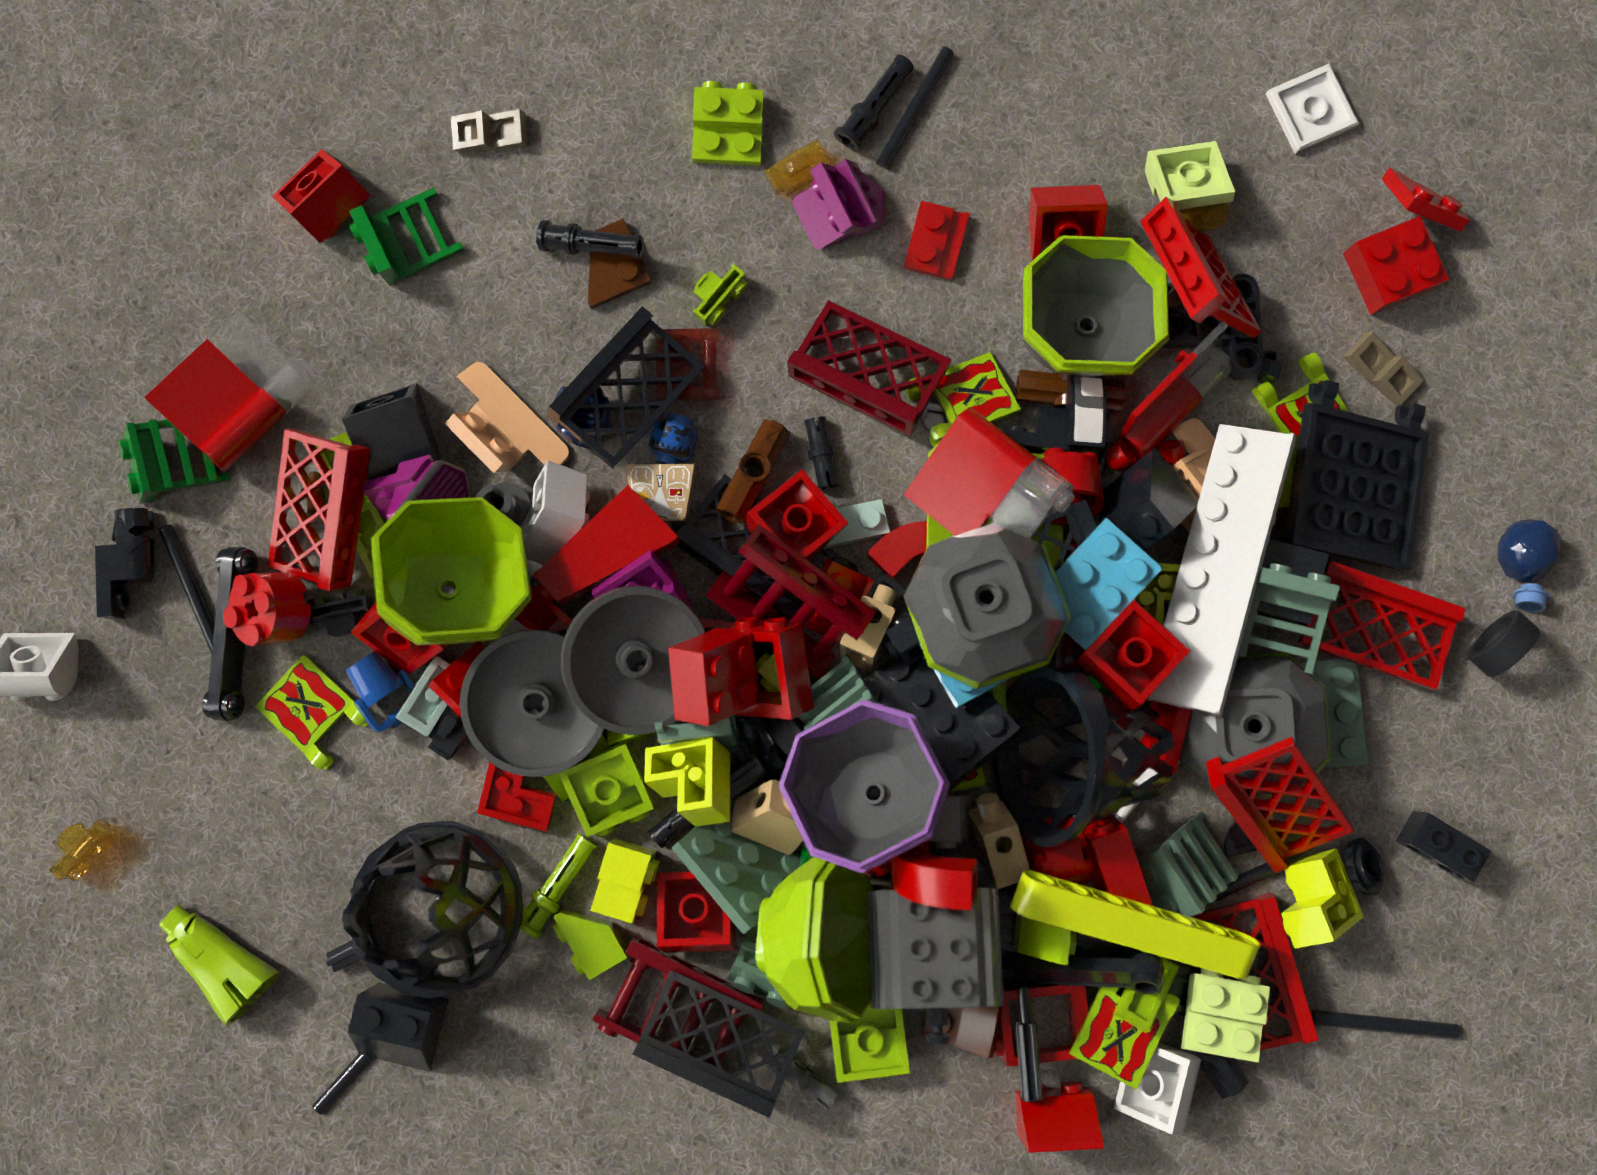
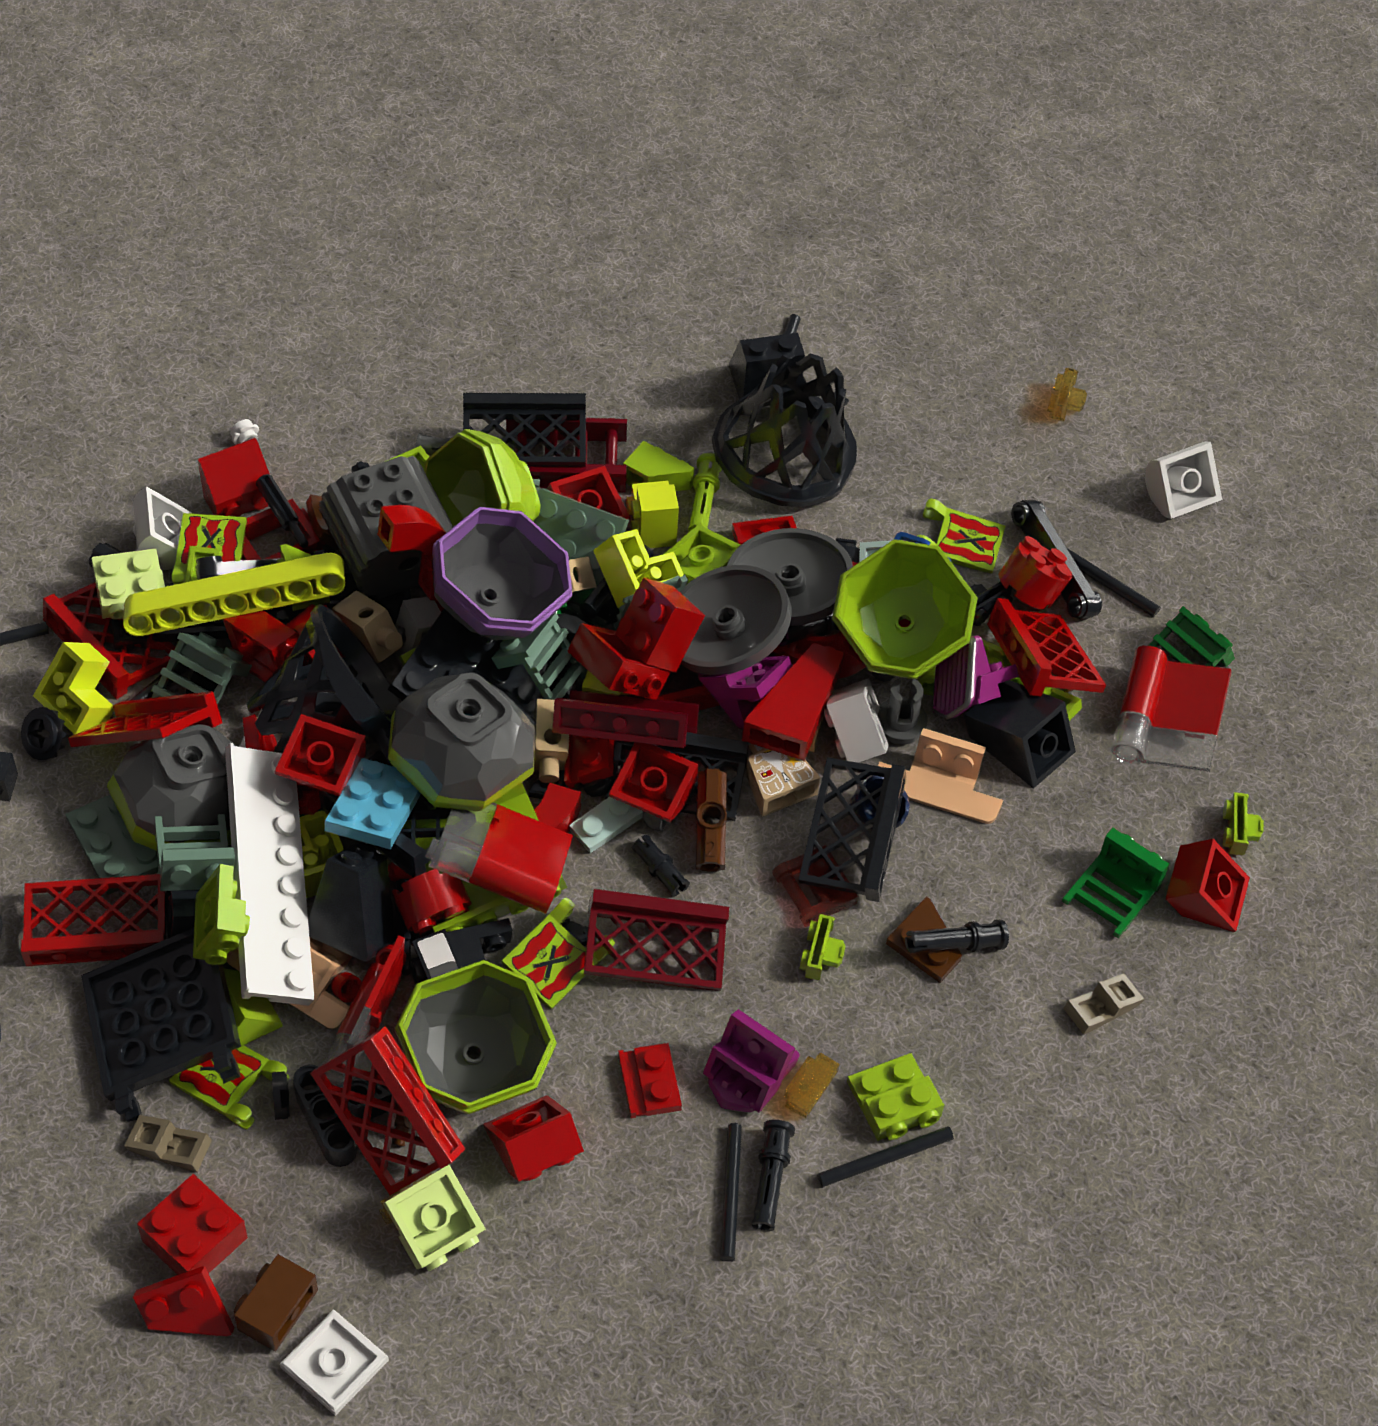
camera: 155 degrees right, 30 degrees down
(125, 562) = (1168, 572): black plate -> none
(221, 968) = (912, 363): lime piece -> none
(246, 244) = (1241, 825): none -> lime piece
(673, 439) = (792, 822): blue head -> none
(766, 79) = (885, 1156): none -> black bar
(1300, 505) = (219, 917): none -> lime plate
(1348, 168) = (275, 1302): none -> reddish brown brick

